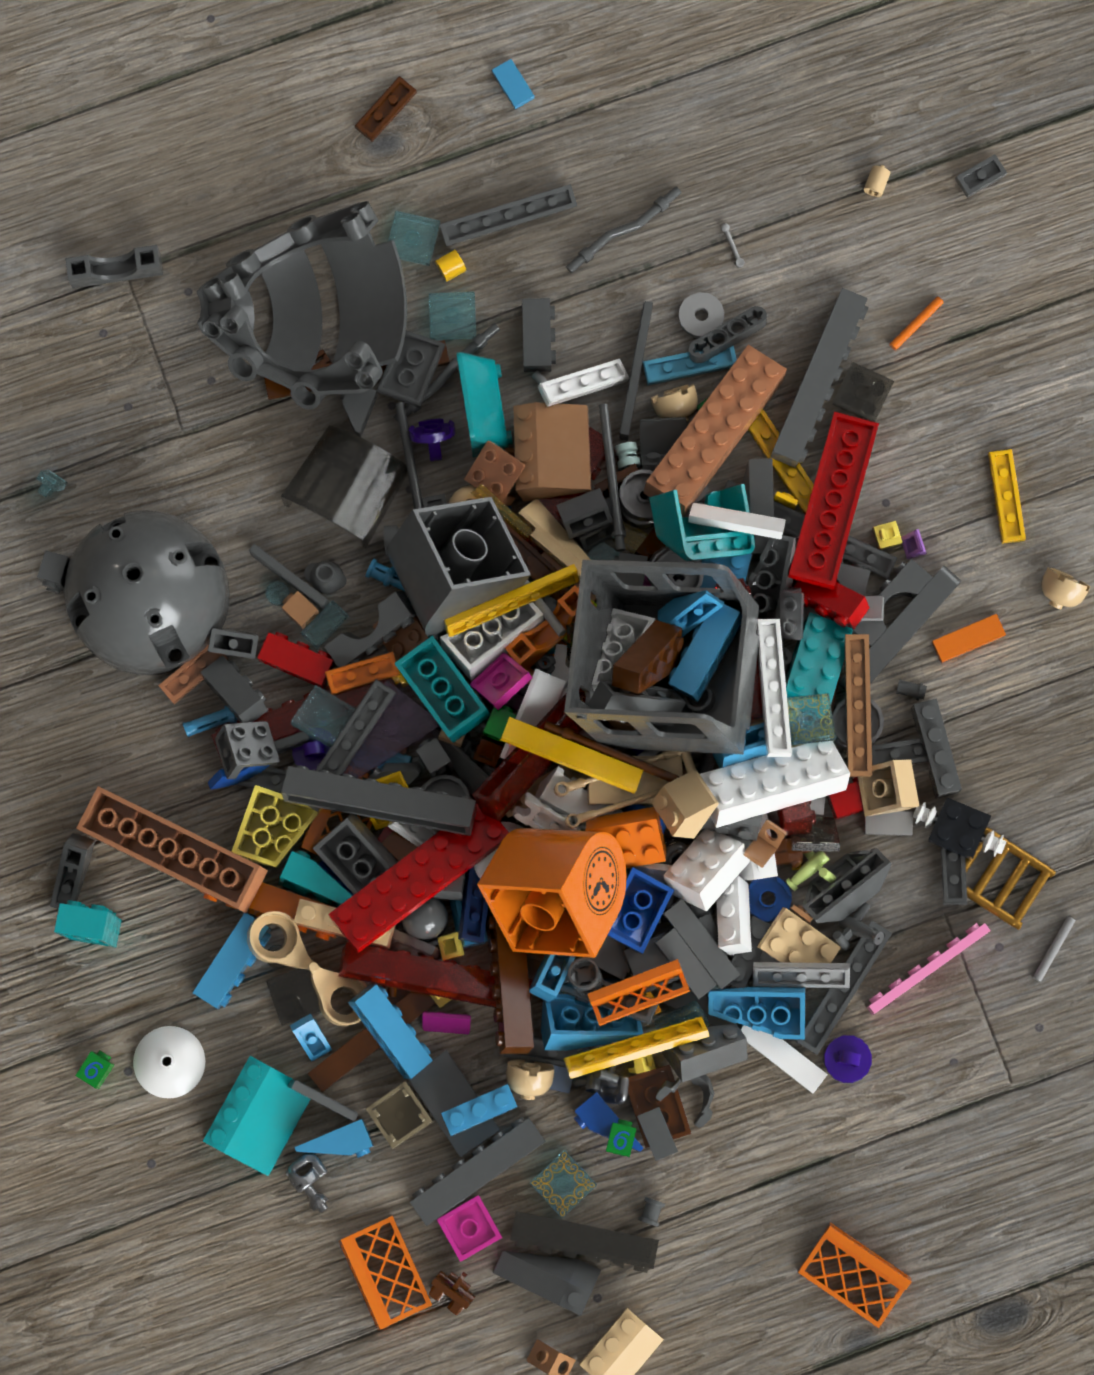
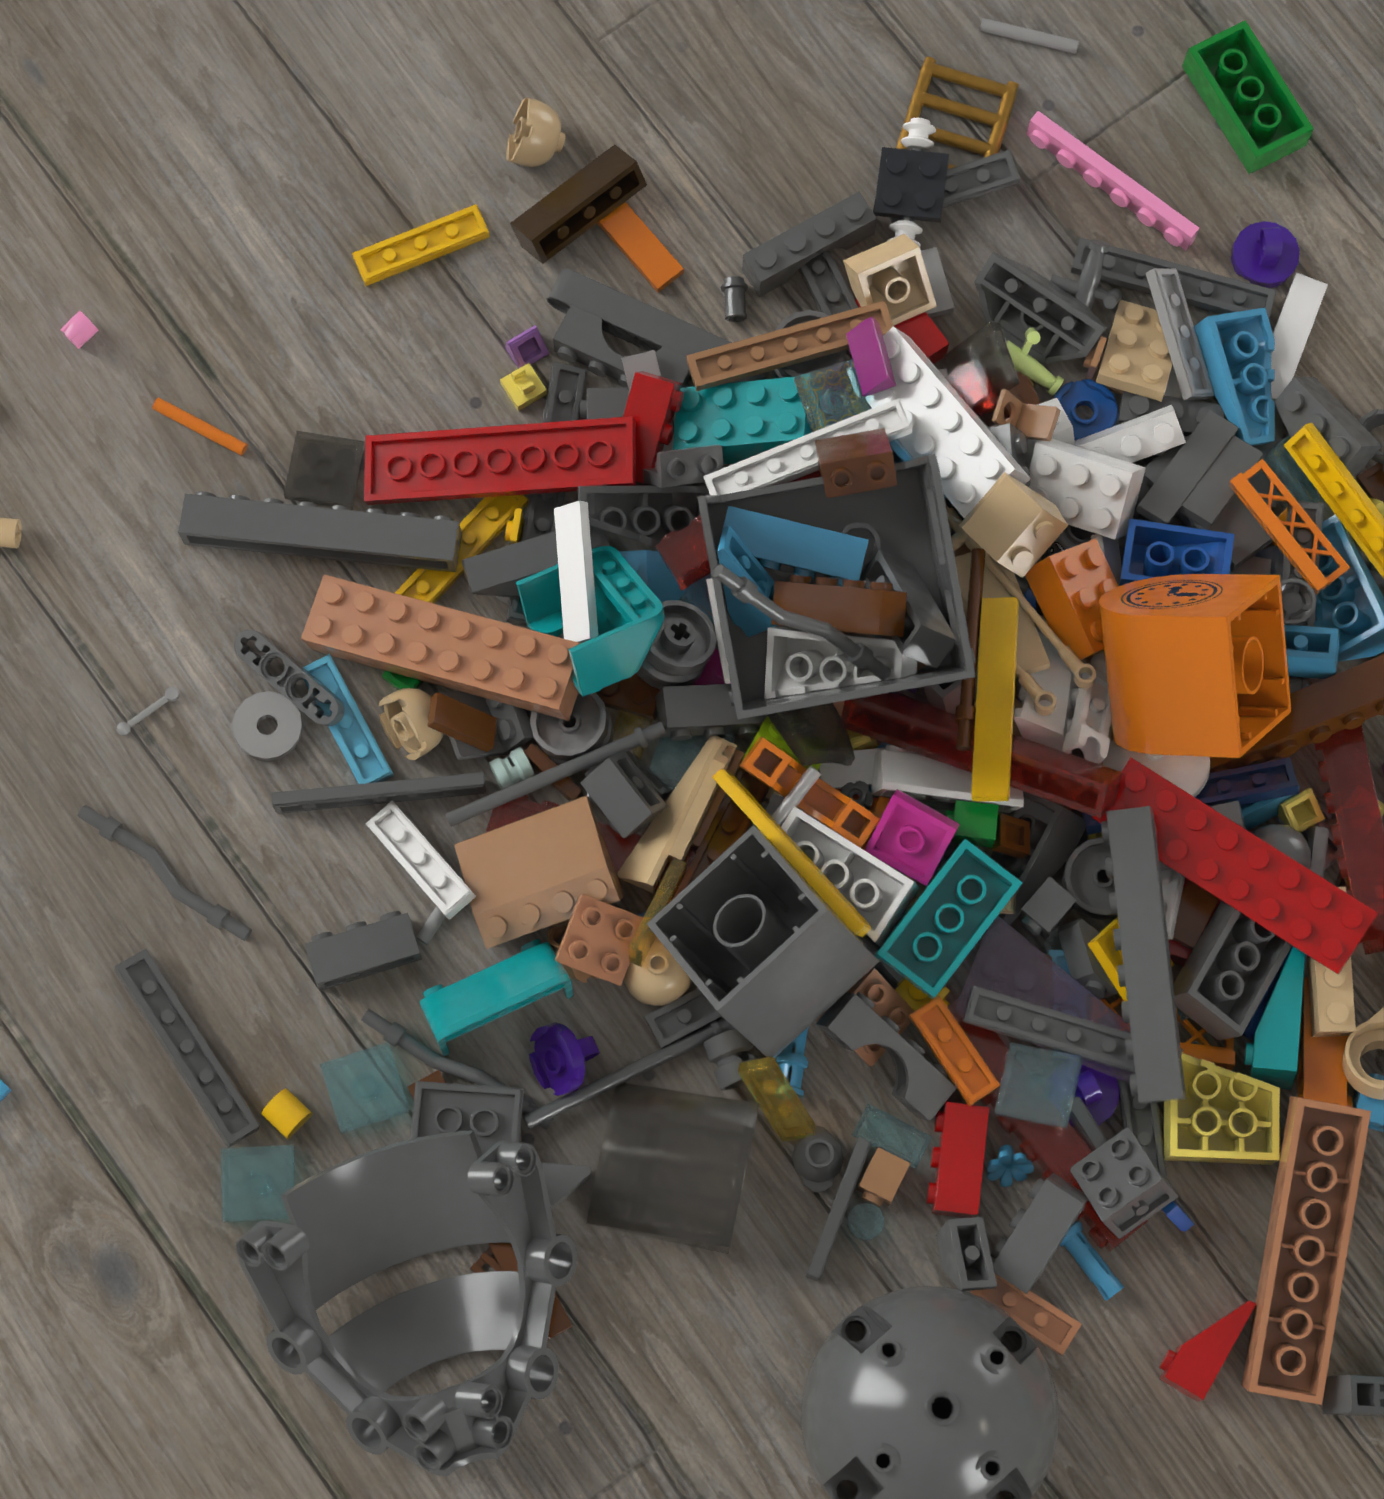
camera: 110 degrees left, 5 degrees down
(131, 770) = (1200, 1358): none -> red slope
(284, 689) = (1009, 1166): none -> dark azure plant
(364, 554) = (777, 1099): none -> clear yellow tile
(385, 109) = (59, 1287): reddish brown tile -> none
(659, 584) = (747, 592): none -> dark grey bar
(662, 428) = (462, 722): none -> reddish brown tile
(748, 703) = (856, 463): none -> reddish brown panel
(831, 751) = (870, 357): none -> magenta slope
(964, 1081) = (1247, 97): none -> green brick
(1004, 263) = (79, 329): none -> bright pink hose
(1005, 603) = (578, 204): none -> dark brown brick

